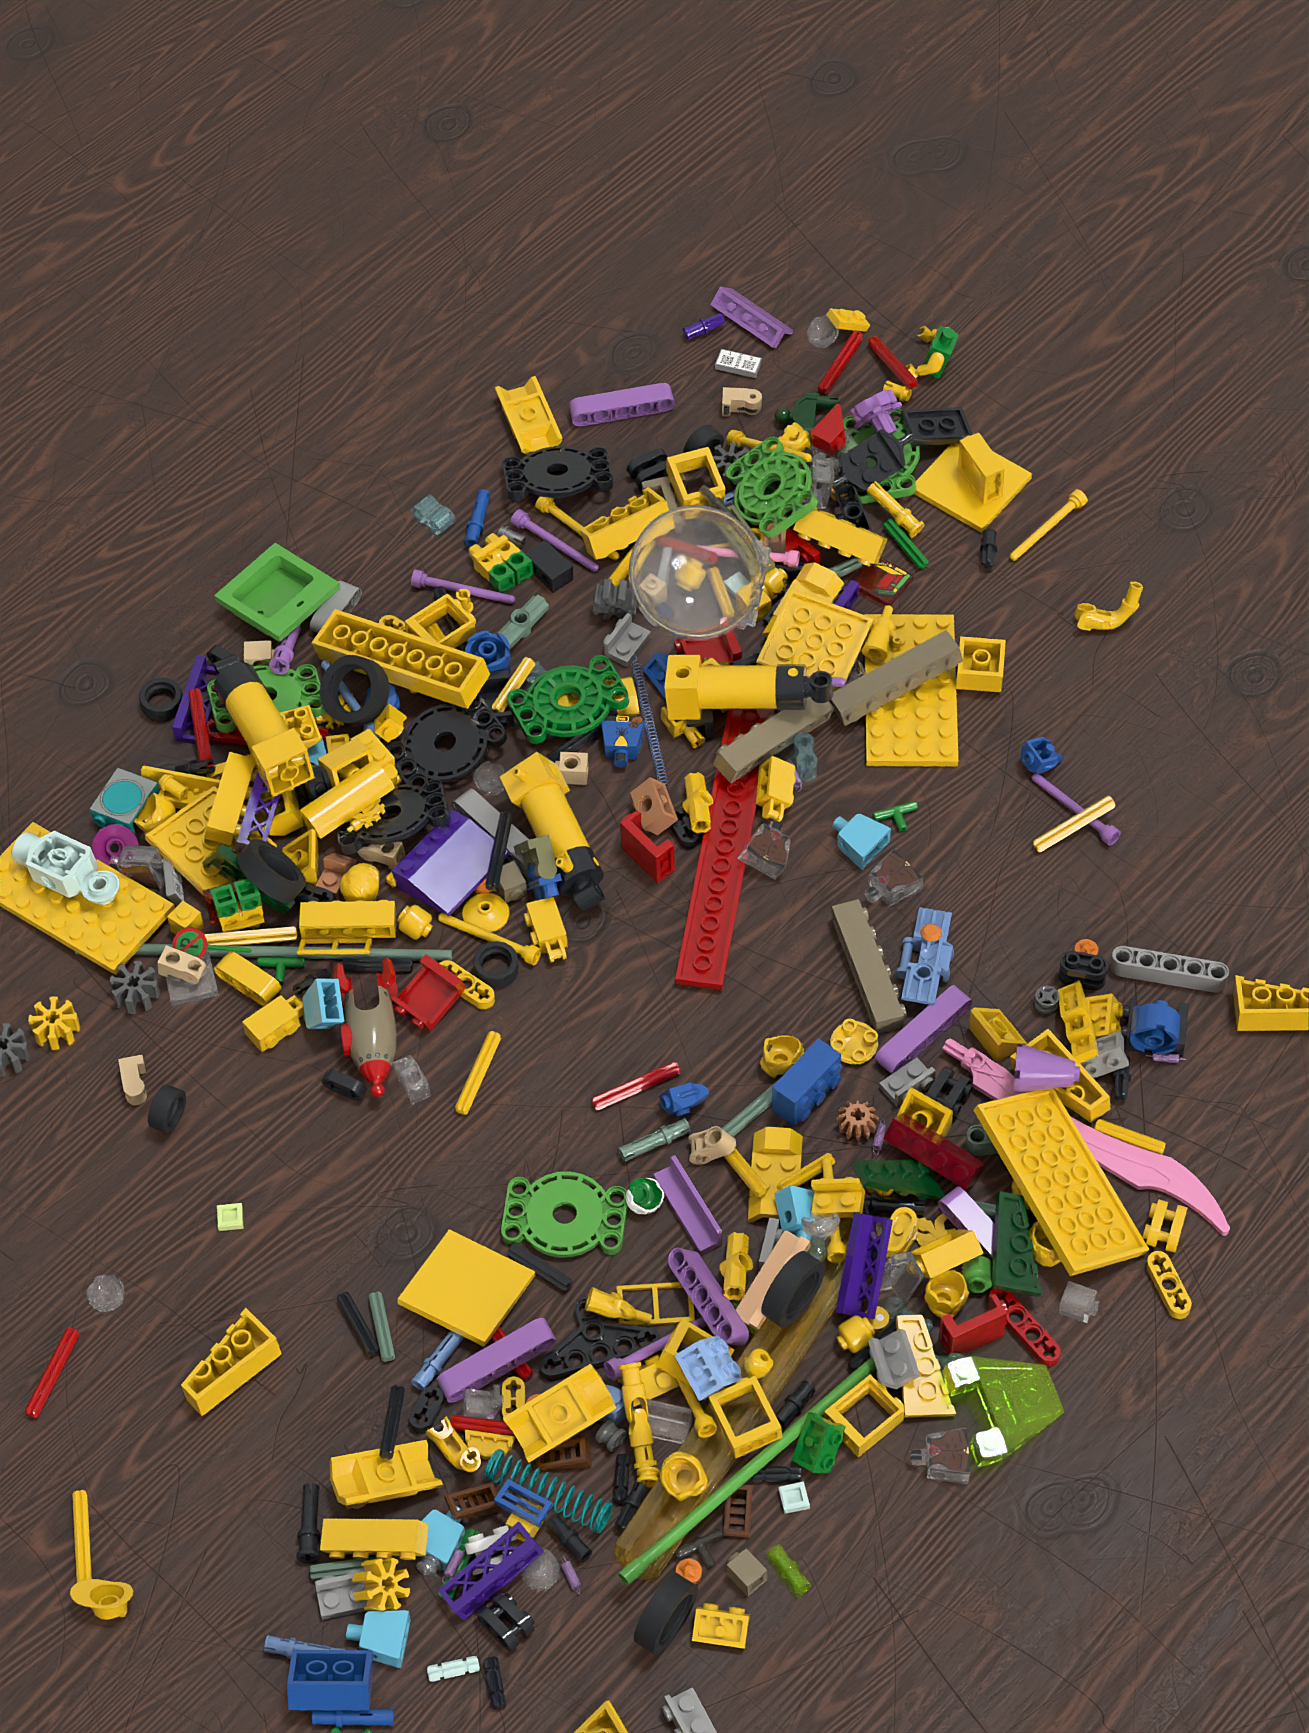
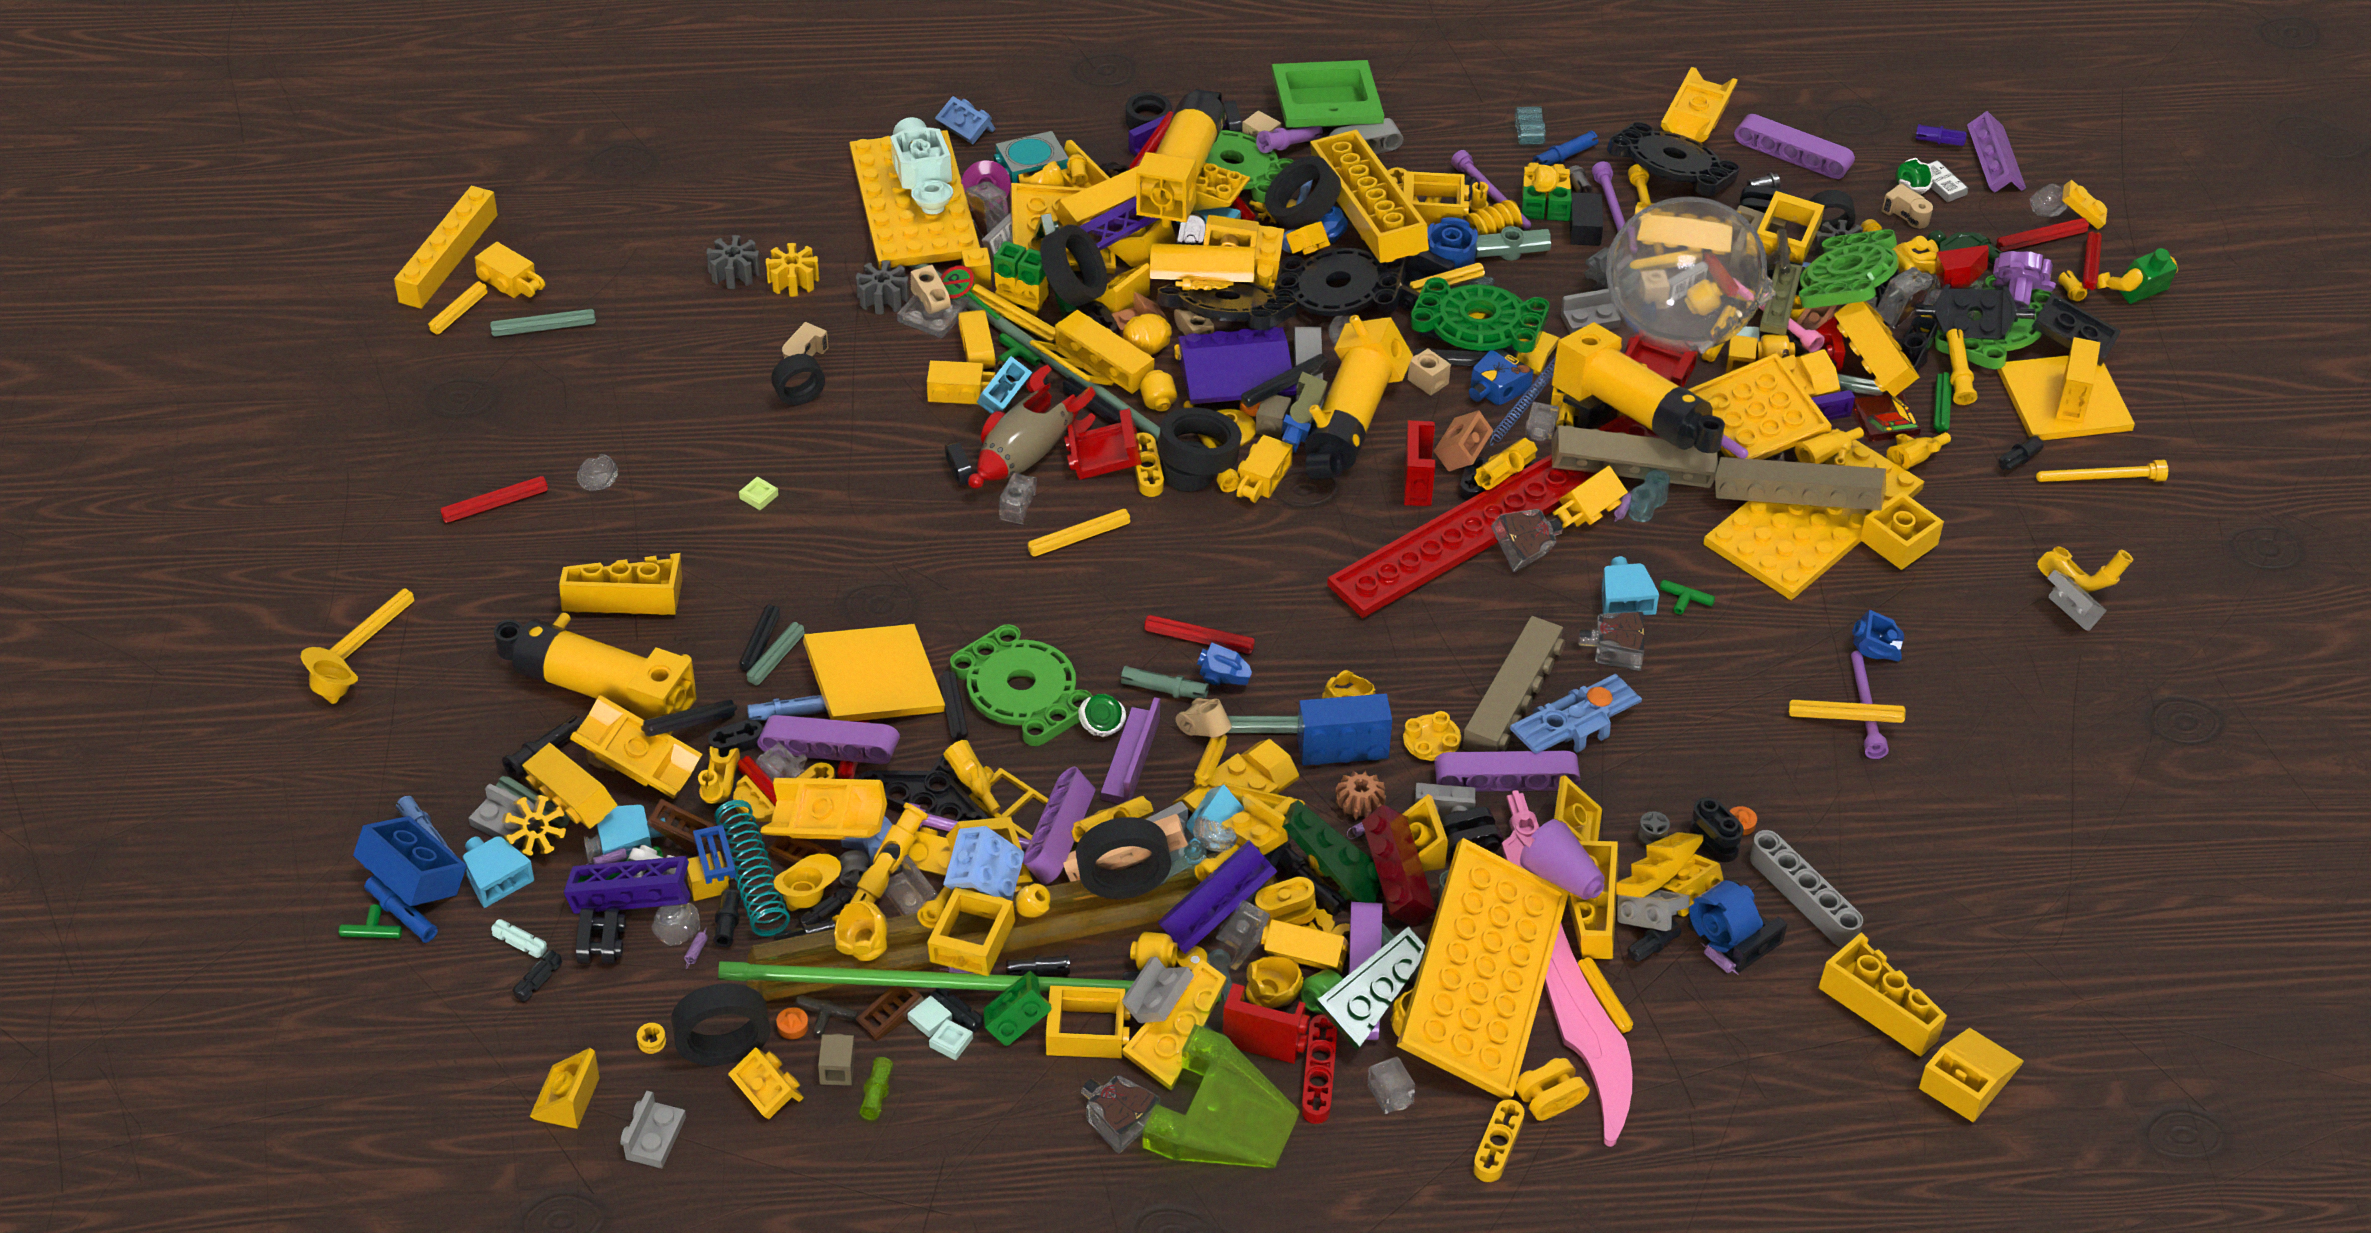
camera: 40 degrees right, 10 degrees down
(36, 804) = (964, 120): none -> medium blue bracket
(251, 1452) = (592, 668): none -> yellow piece
(493, 611) = (1495, 218): none -> yellow piece
(497, 962) = (1193, 459): none -> black tyre
(503, 556) = (1545, 178): none -> yellow piece
(596, 1467) = (806, 880): none -> yellow piece
(621, 1656) = (651, 1029): none -> yellow bush
(634, 447) = (1771, 180): none -> flat silver pin
(683, 751) = (1542, 421): none -> clear bracket
(722, 374) = (1914, 175): none -> green hair
(765, 1494) = (929, 1016): none -> light aqua tile
(927, 593) = (1914, 451): none -> yellow piece
(1123, 637) = (2075, 601): none -> light grey bracket

